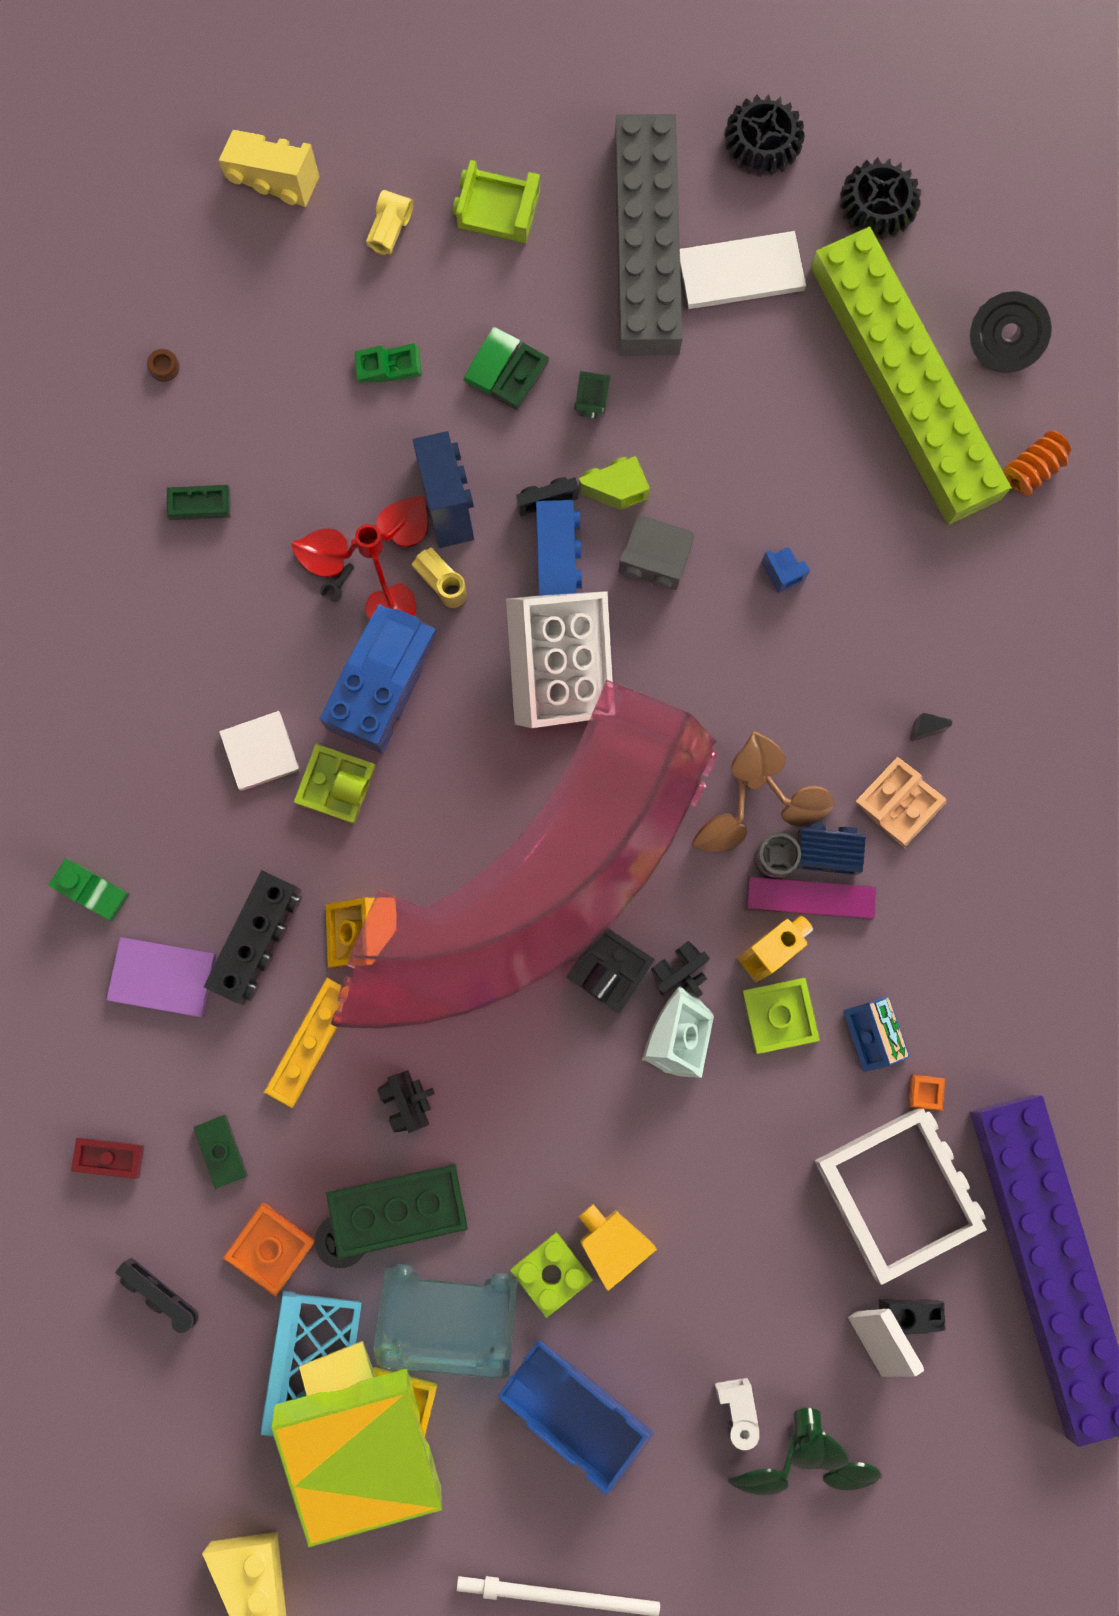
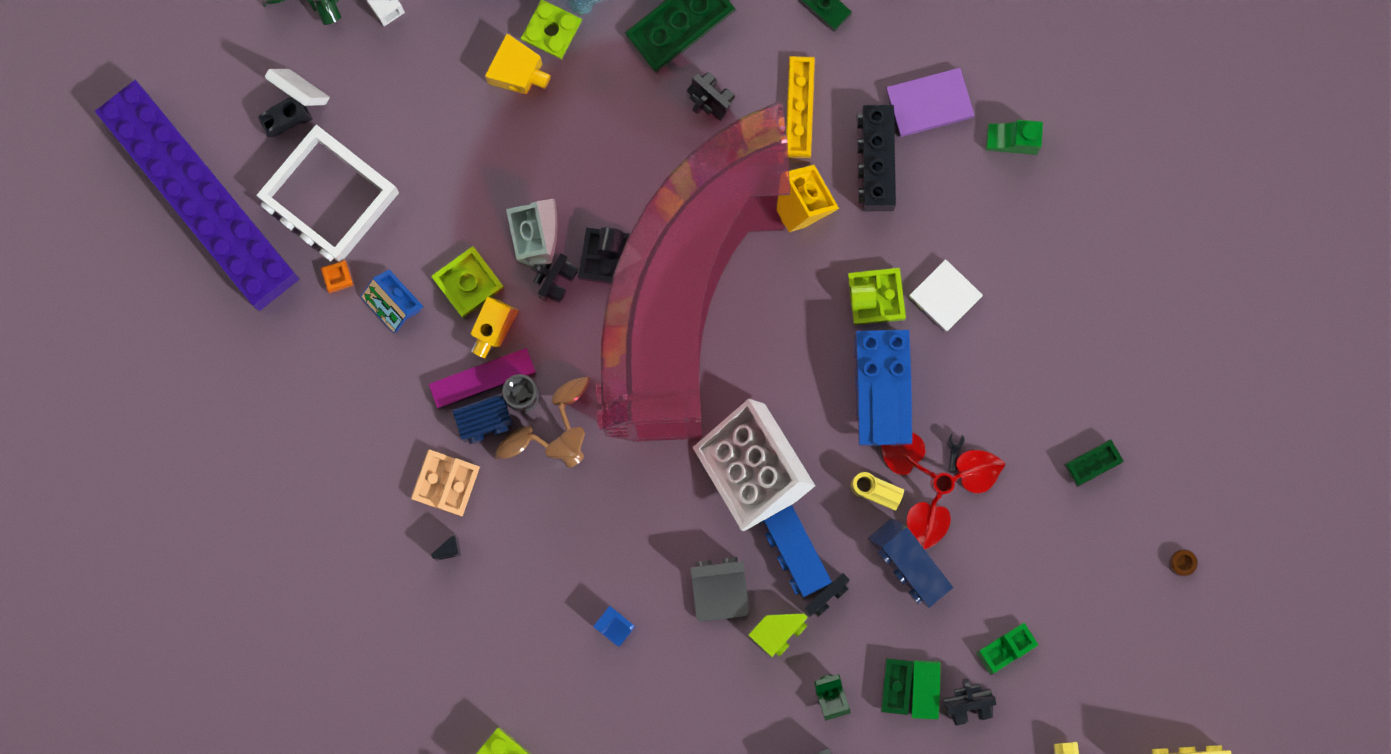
camera: 160 degrees right, 0 degrees up
(453, 327) = (970, 698): none -> black hips

